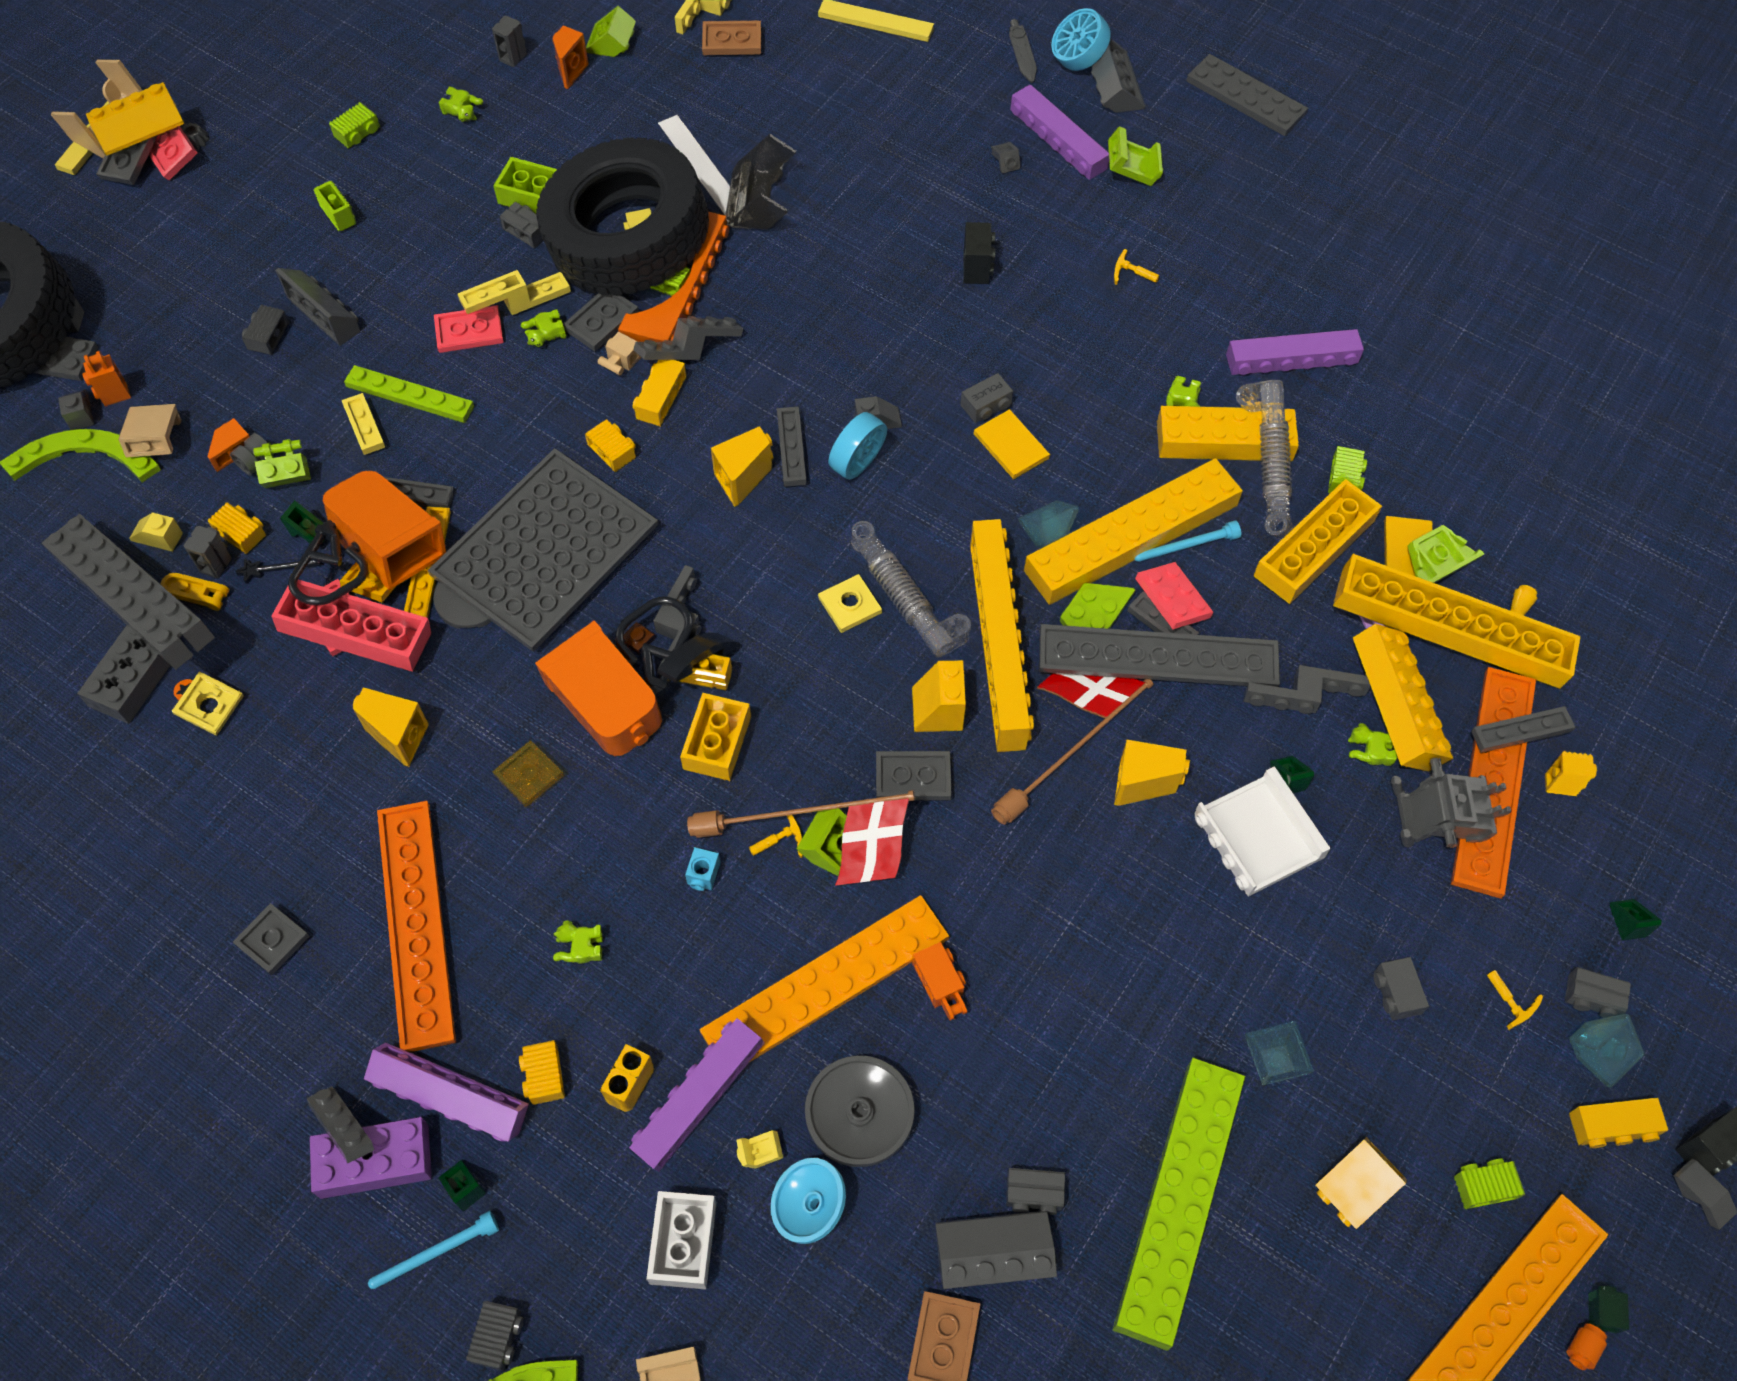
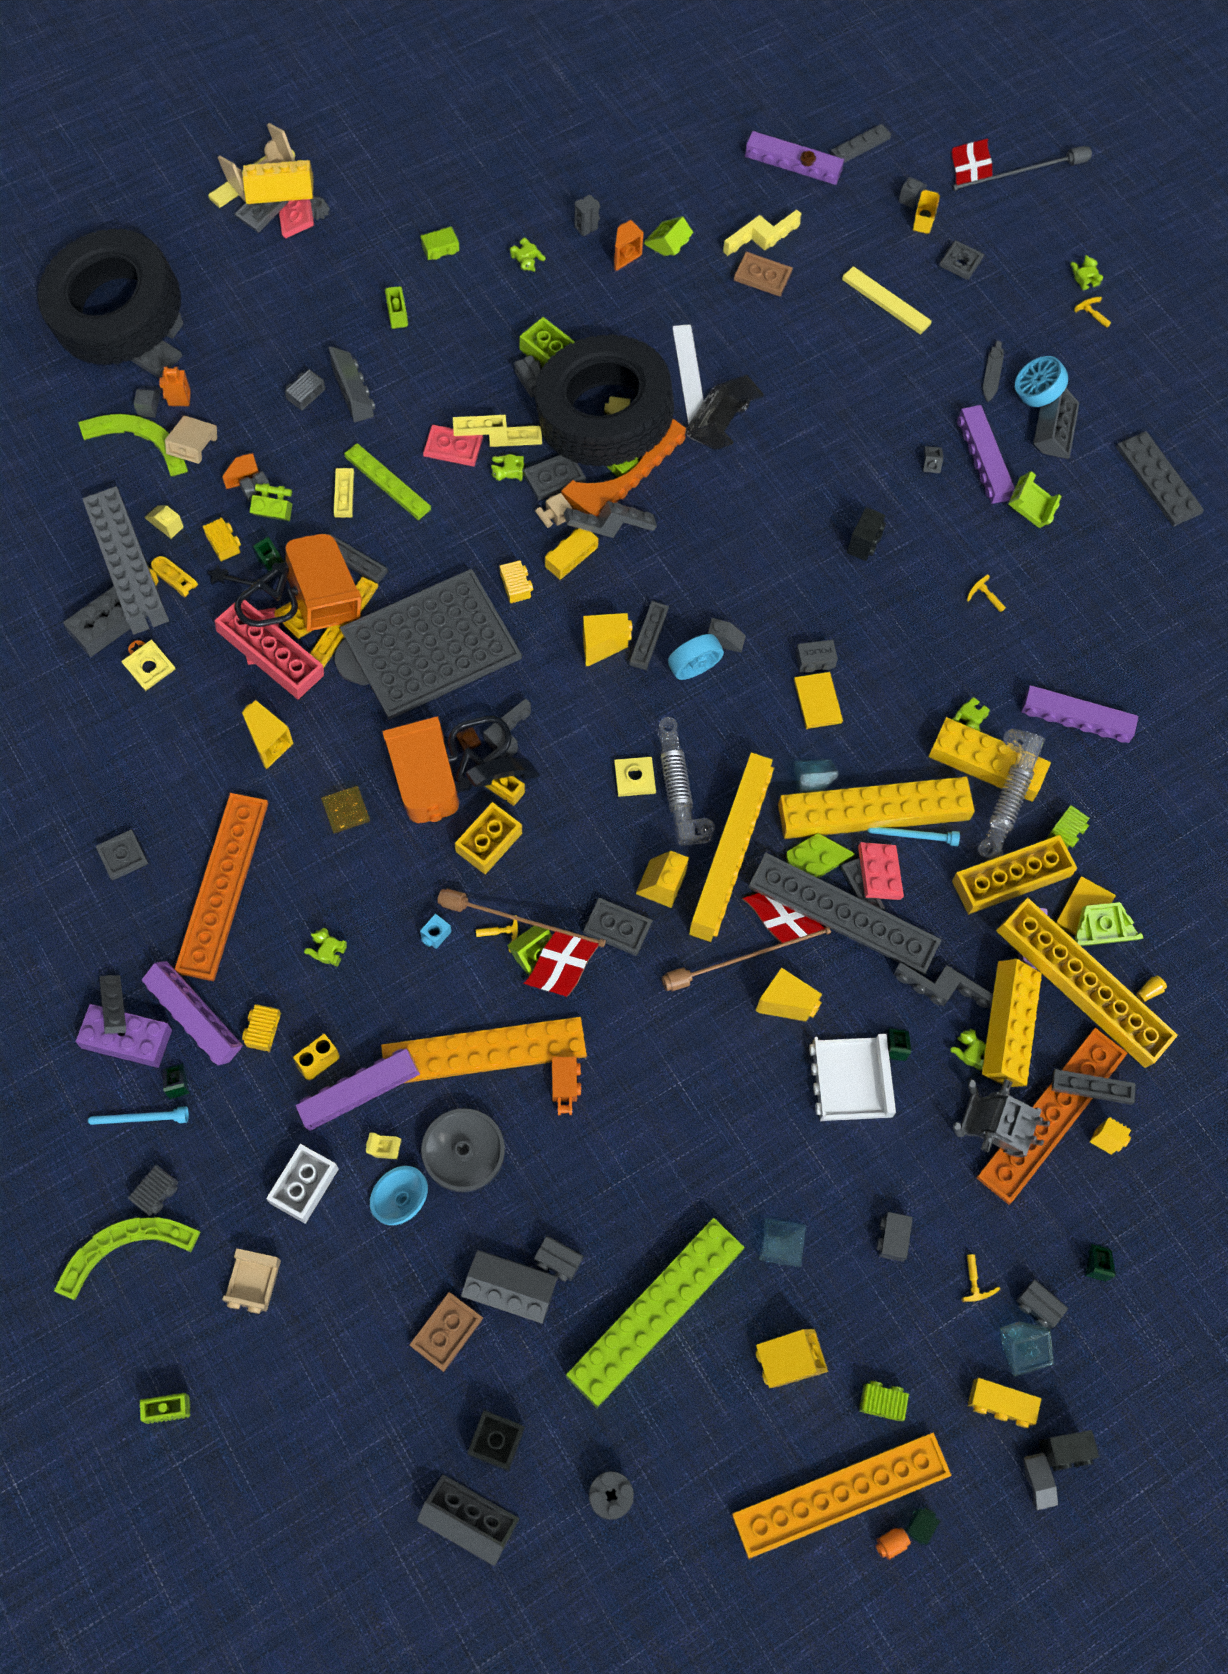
camera: 20 degrees right, 5 degrees up
(208, 551) = (193, 550): dark grey brick -> none

